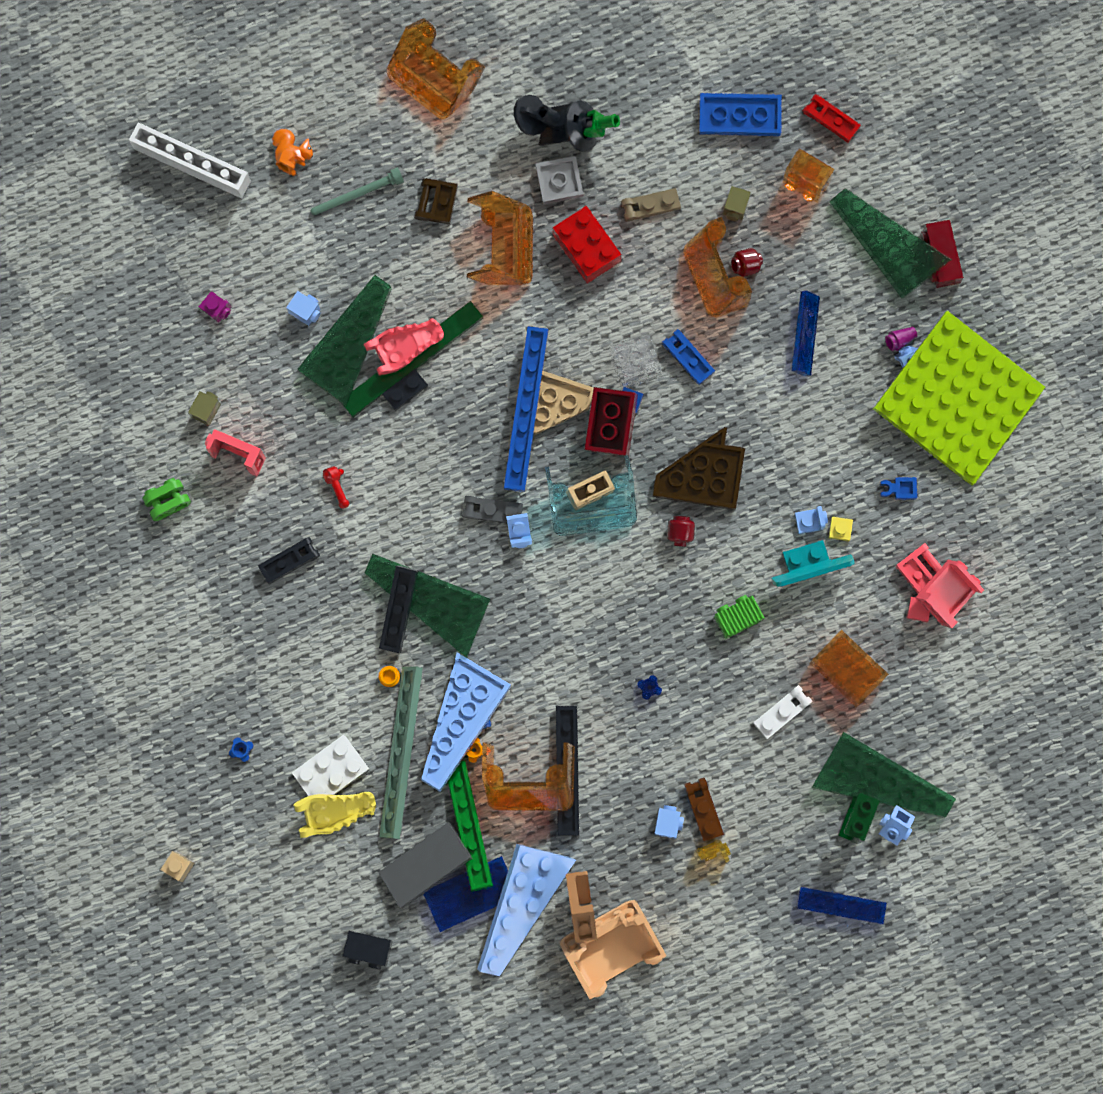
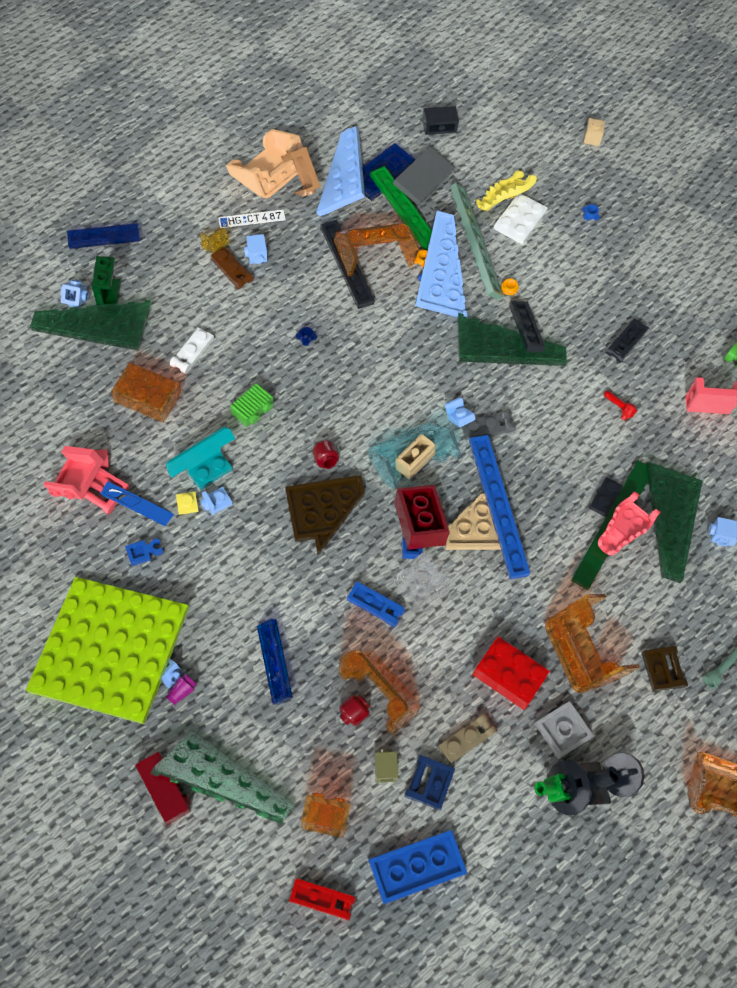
camera: 150 degrees right, 15 degrees down
(656, 878) = (252, 218): none -> white sticker
(696, 173) = (436, 785): none -> dark blue plate
(893, 542) = (136, 503): none -> blue sticker

